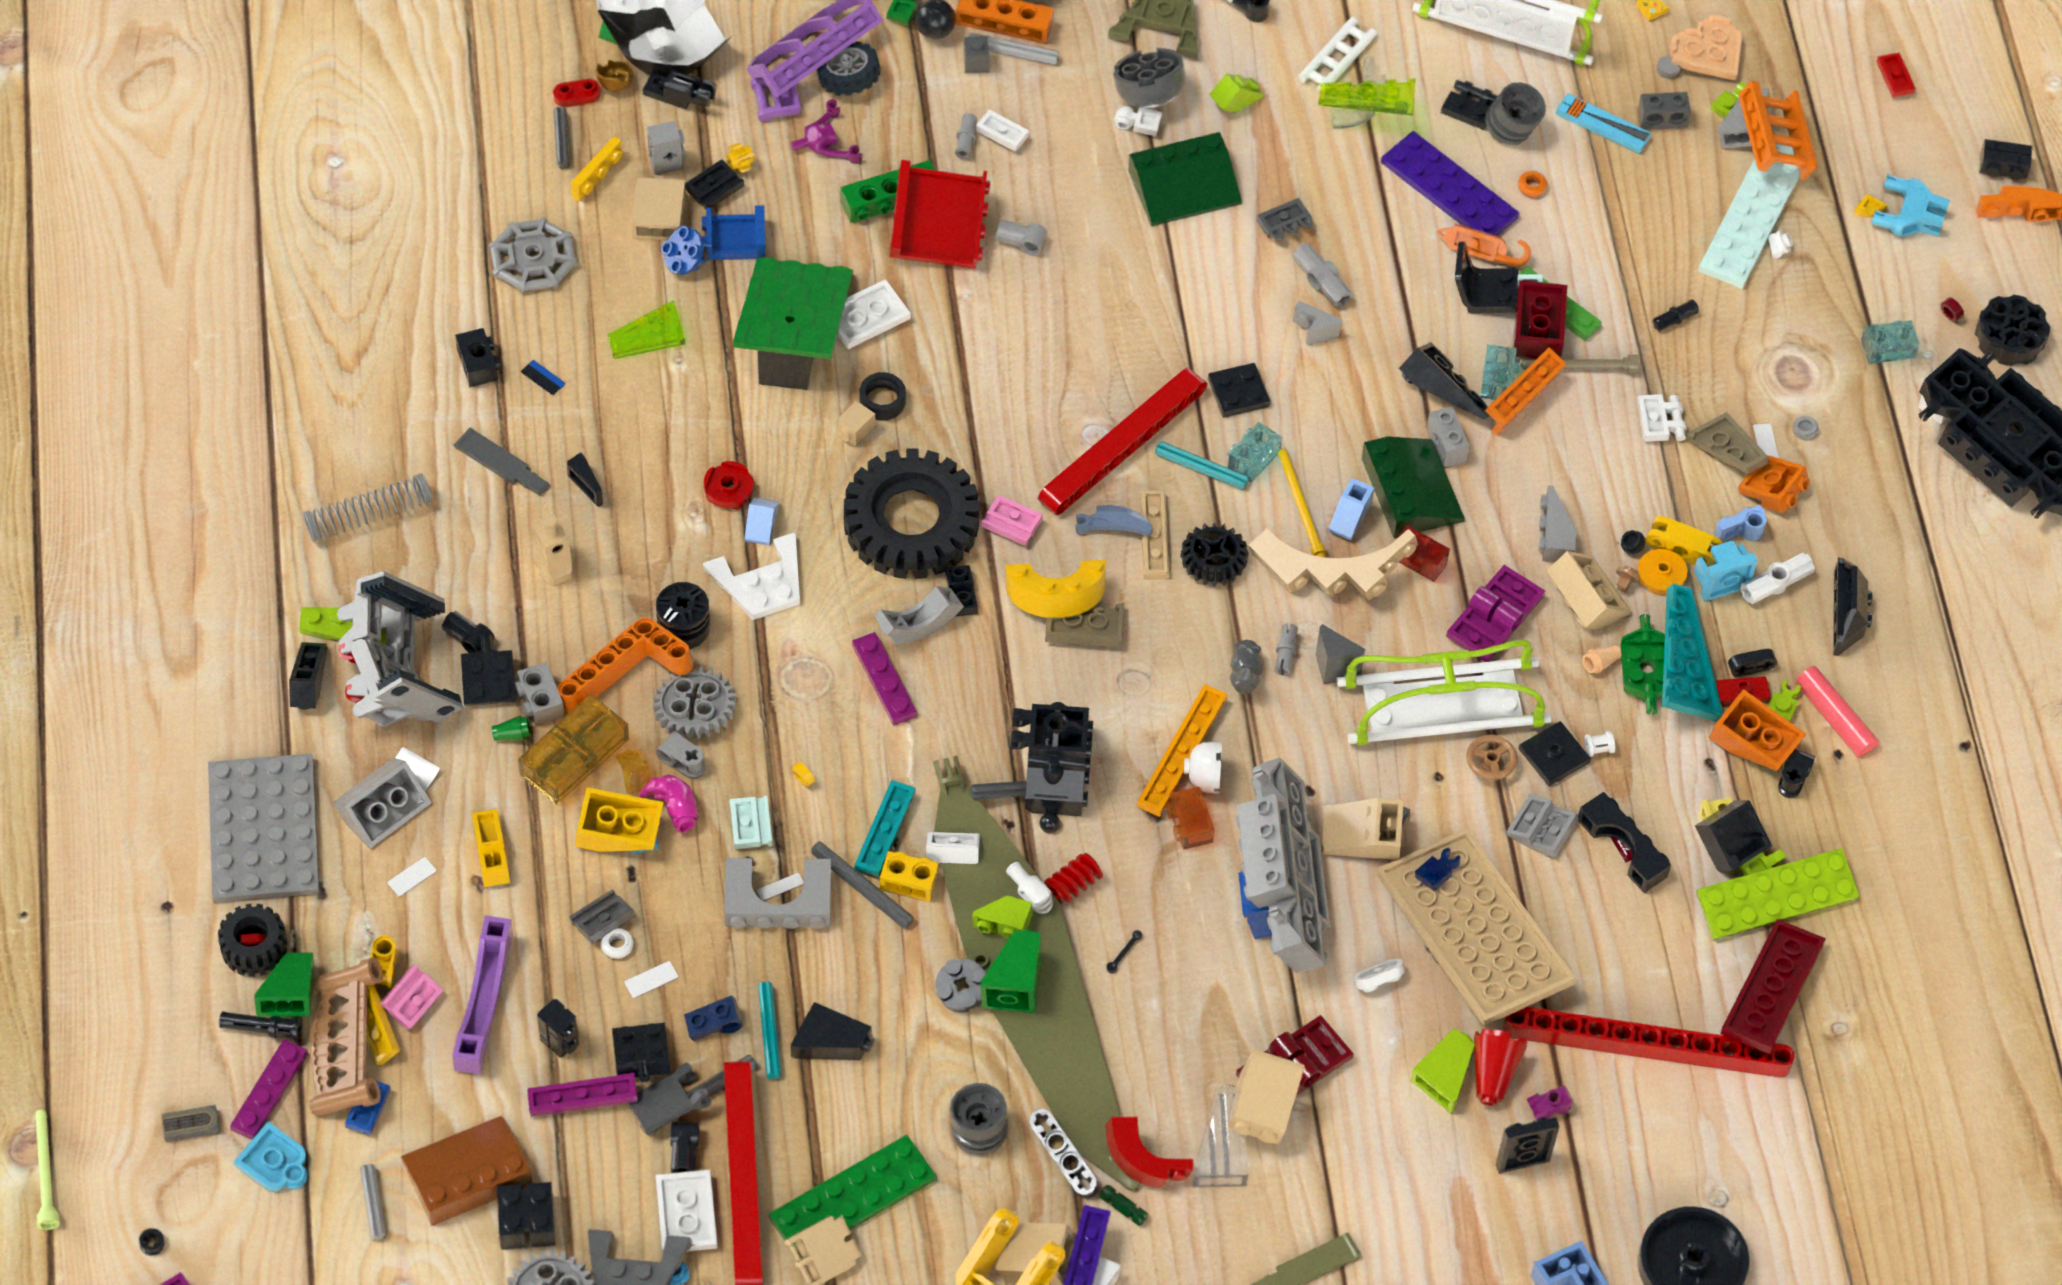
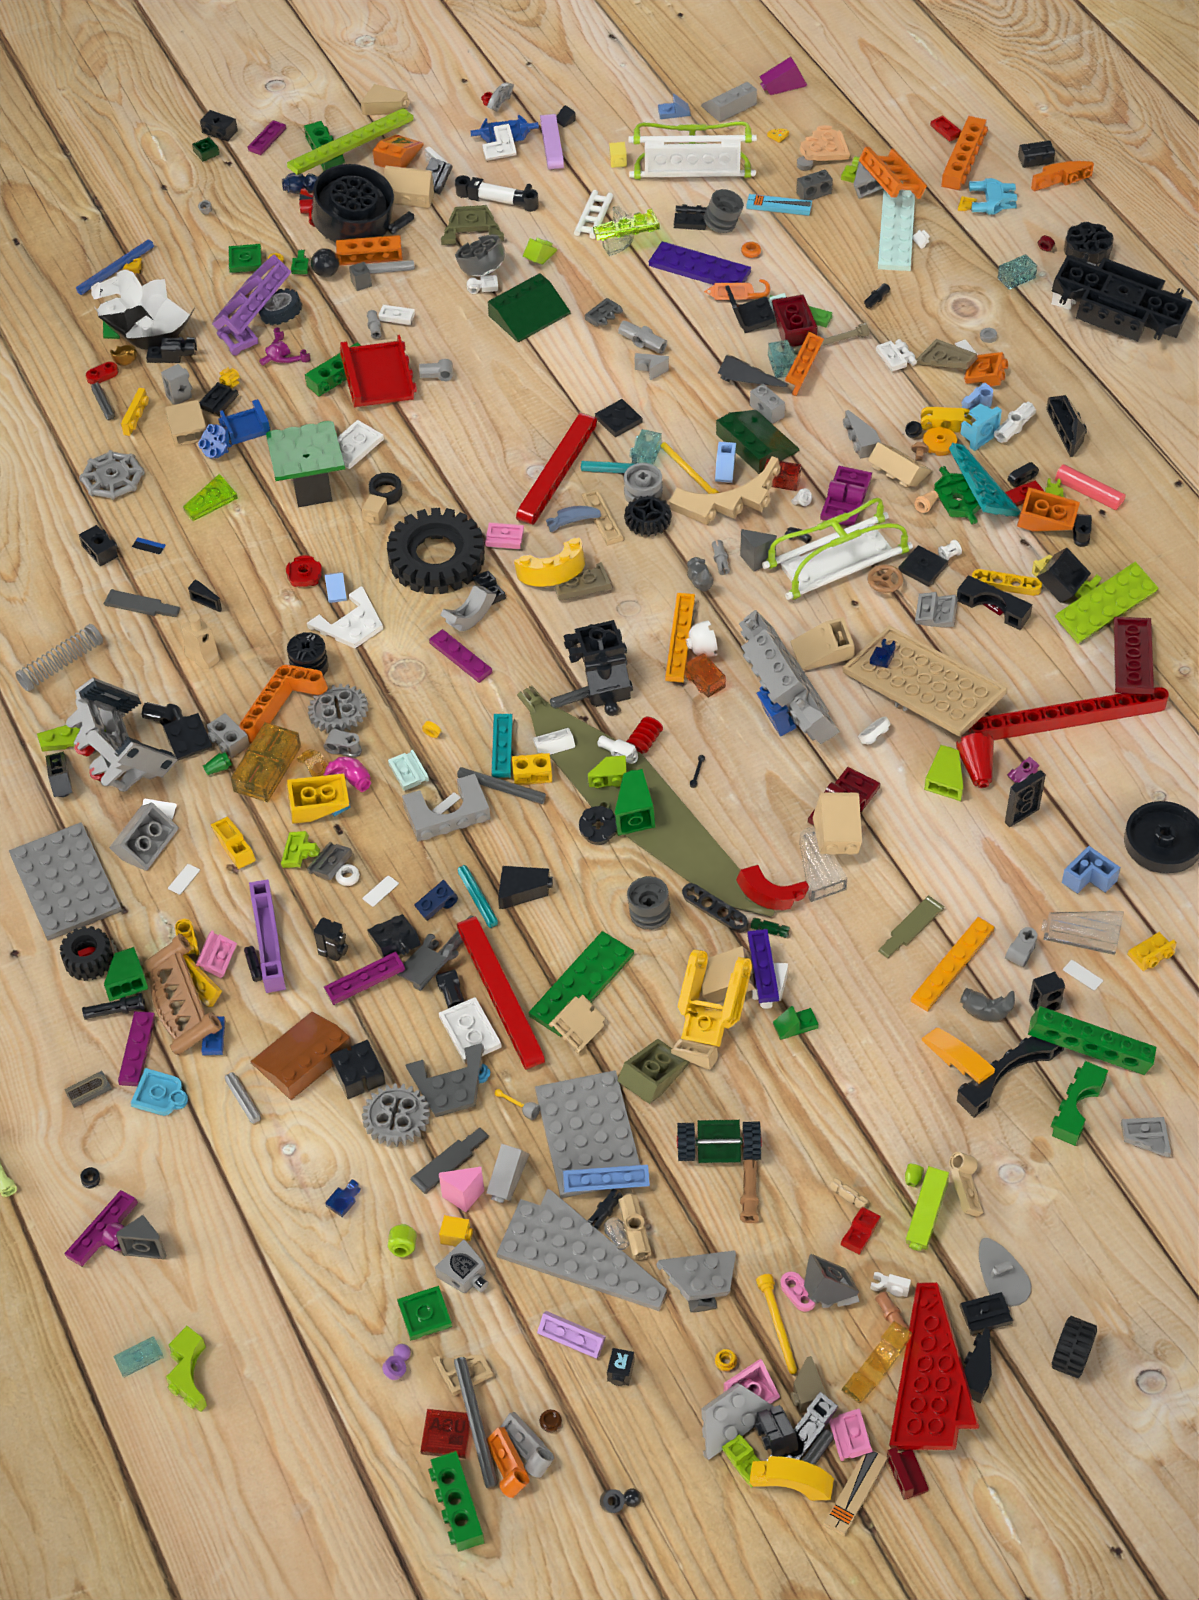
camera: 15 degrees left, 5 degrees down
(453, 1023) = (253, 963): none -> black axle
(567, 886) = (297, 849): none -> lime hinge
(1226, 502) = (642, 480): none -> light grey wheel
(1399, 643) = (805, 538): none -> black arm
(1435, 596) = (802, 498): none -> white plate
(1658, 813) = (1006, 582): none -> yellow beam
(1902, 124) = (964, 153): none -> orange brick

